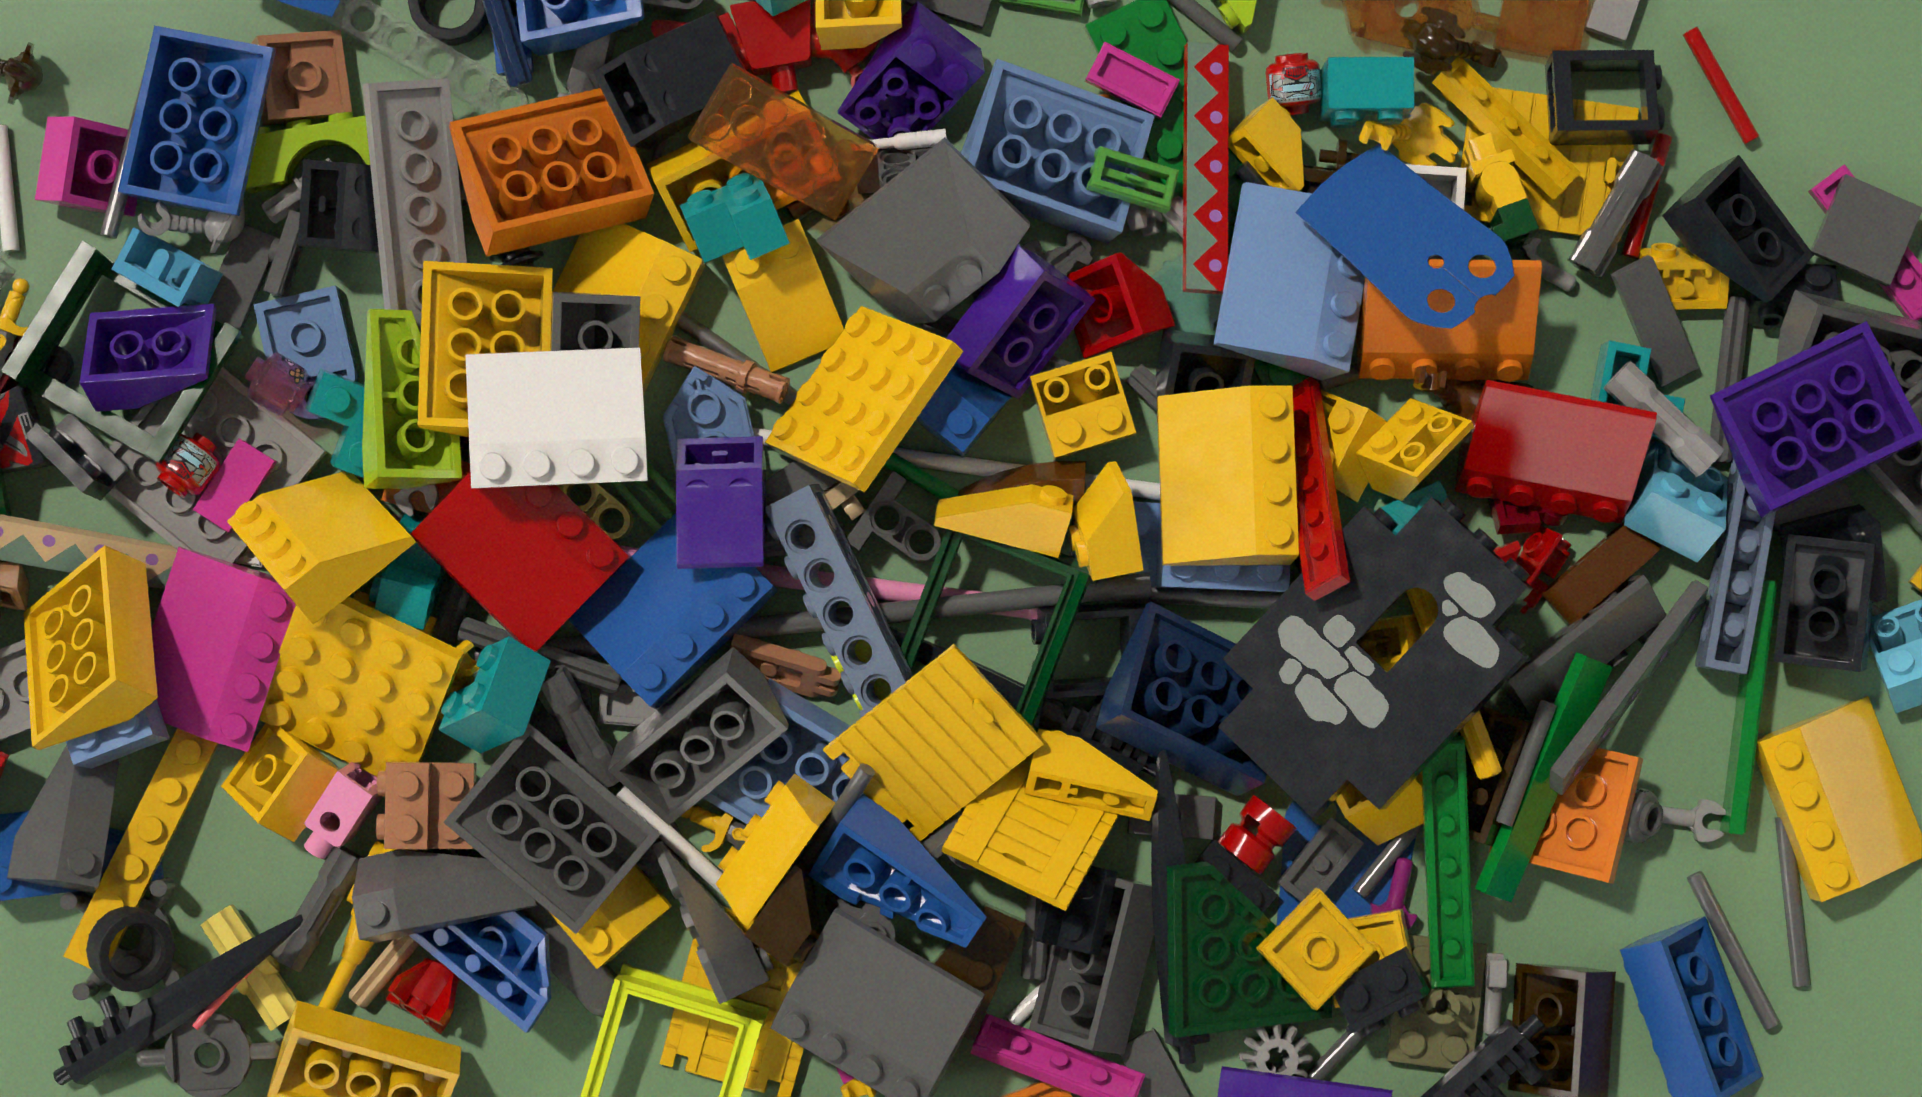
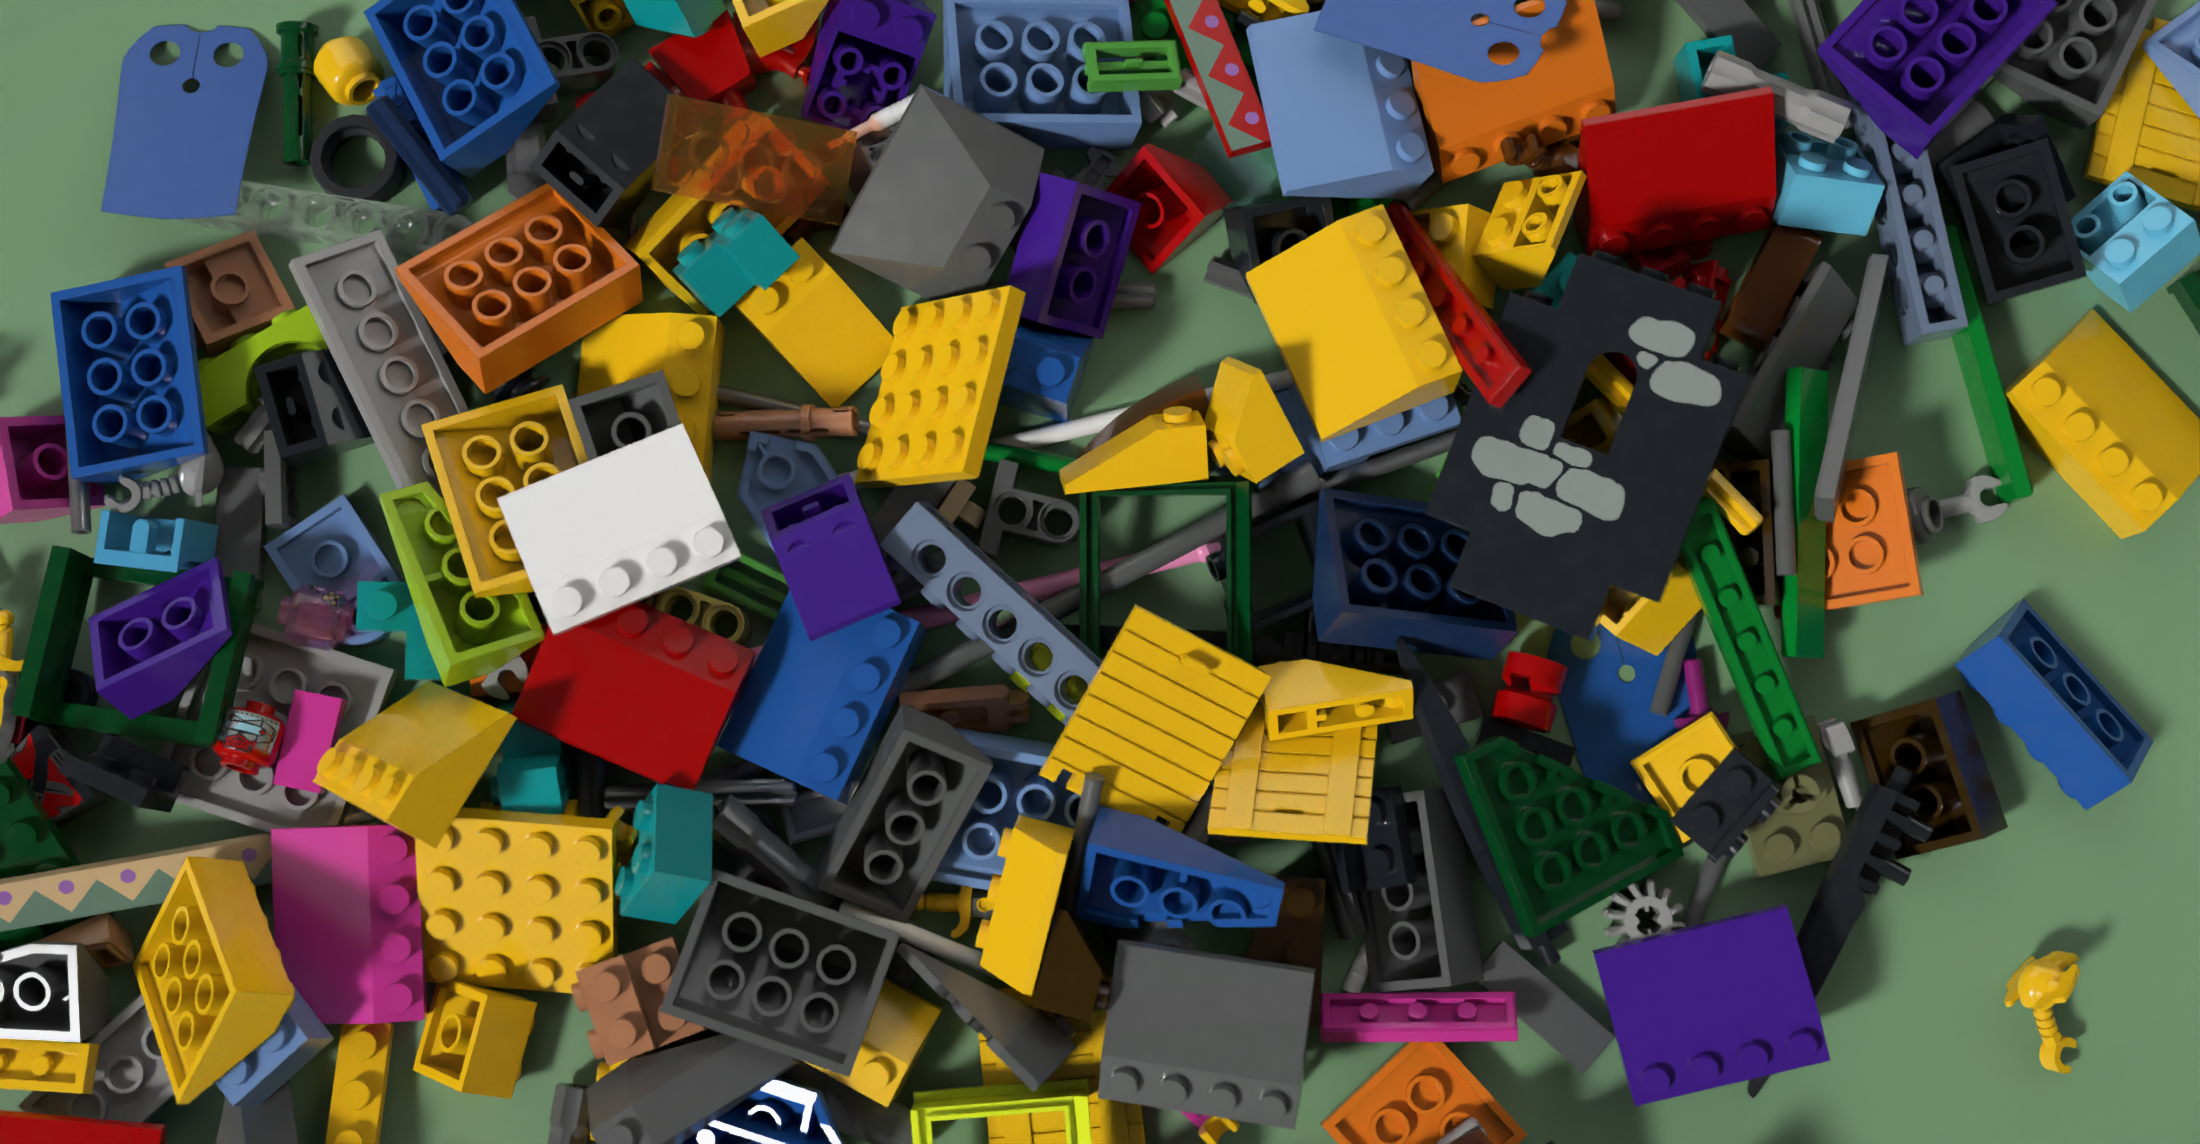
camera: 20 degrees left, 5 degrees down
(341, 810) = (549, 1043): bright pink torso -> none
(1082, 406) = (1171, 319): yellow slope -> none
(1316, 949) = (1642, 785): yellow tile -> none
(1320, 860) = (1606, 696): dark grey plate -> none
(1733, 950) = (2067, 622): flat silver piece -> none
(1792, 908) = (2108, 553): dark grey bar -> none

